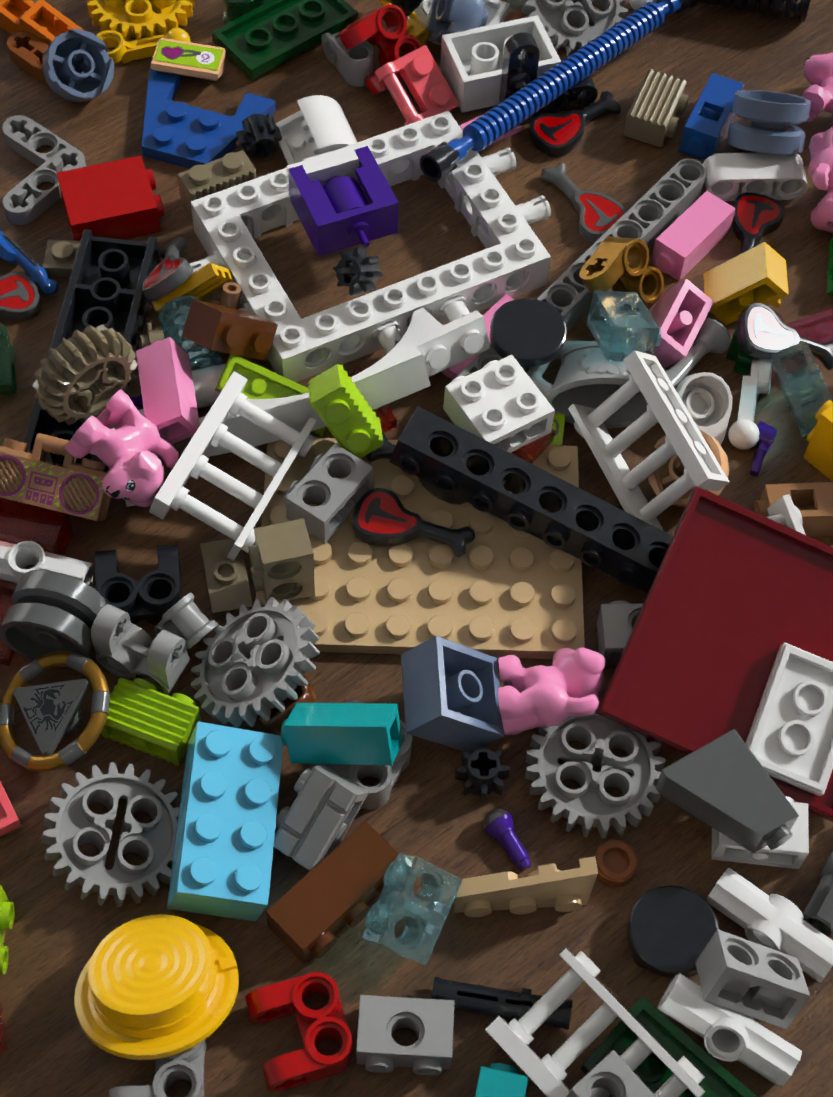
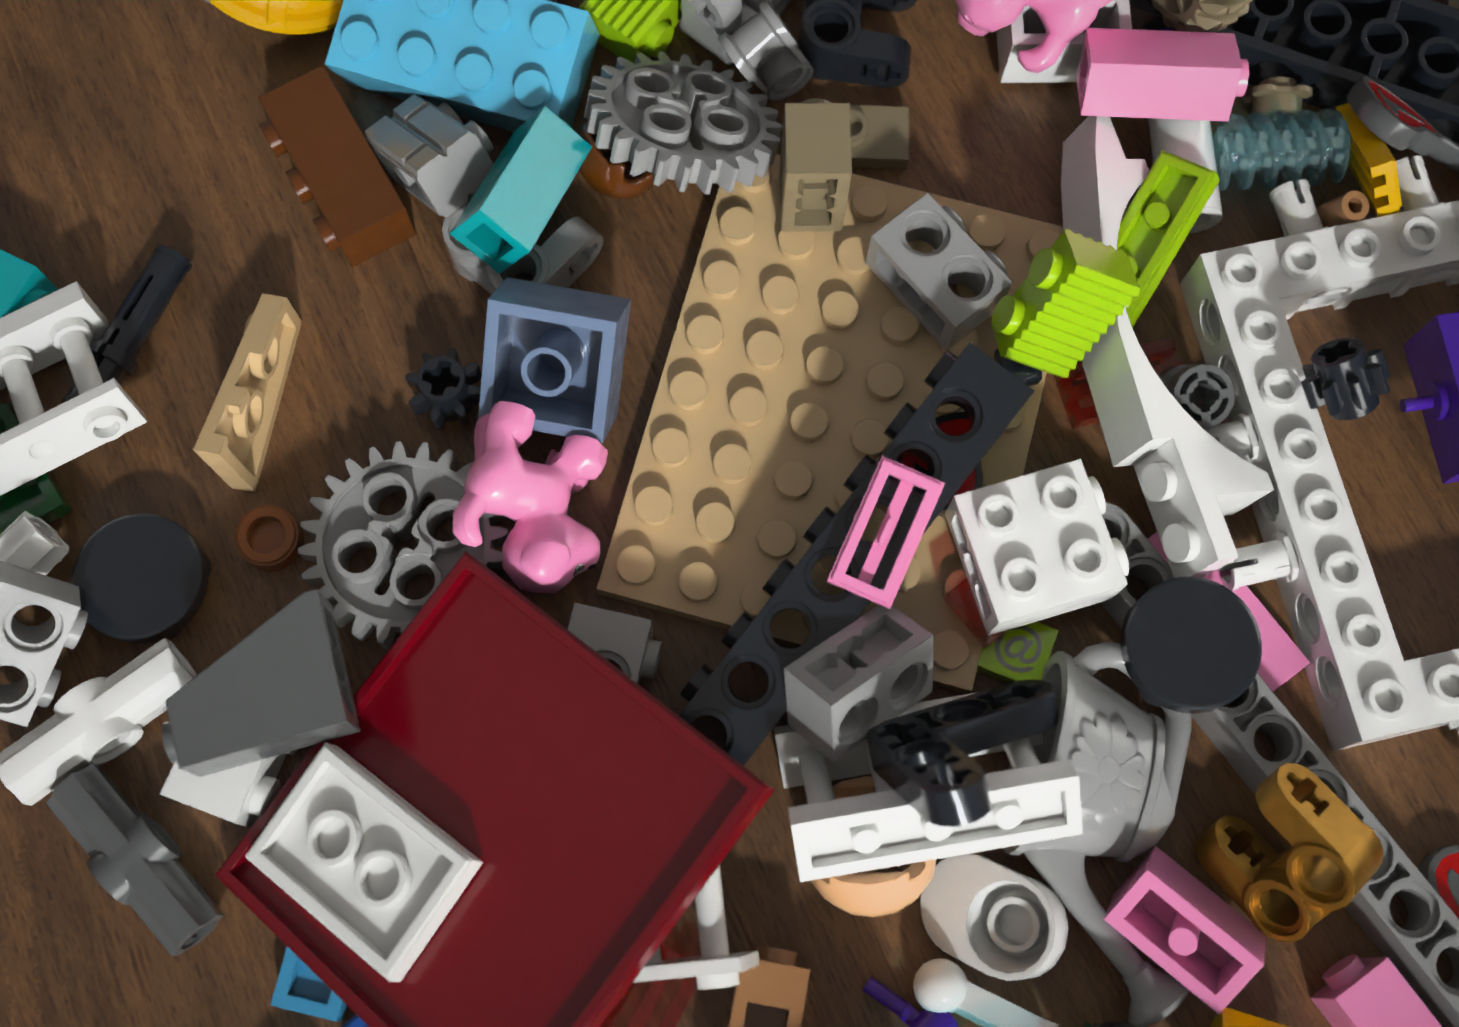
camera: 105 degrees right, 15 degrees up
(215, 433) = (1012, 77): white fence -> none
(229, 330) = (1258, 174): reddish brown brick -> none
(314, 1025) = (177, 109): red piece -> none
(369, 349) = (1216, 391): none -> dark grey wheel
(386, 522) = (879, 347): black piece -> none
(421, 913) = (268, 236): clear light blue brick -> none
(428, 1018) = (123, 171): light grey brick -> none
(499, 825) = (368, 398): dark purple piece -> none
(521, 476) = (861, 585): none -> bright pink tile
(606, 478) = (858, 680): none -> light grey brick
(622, 324) = (1175, 814): clear light blue brick -> none
(636, 429) = (929, 749): none -> black beam

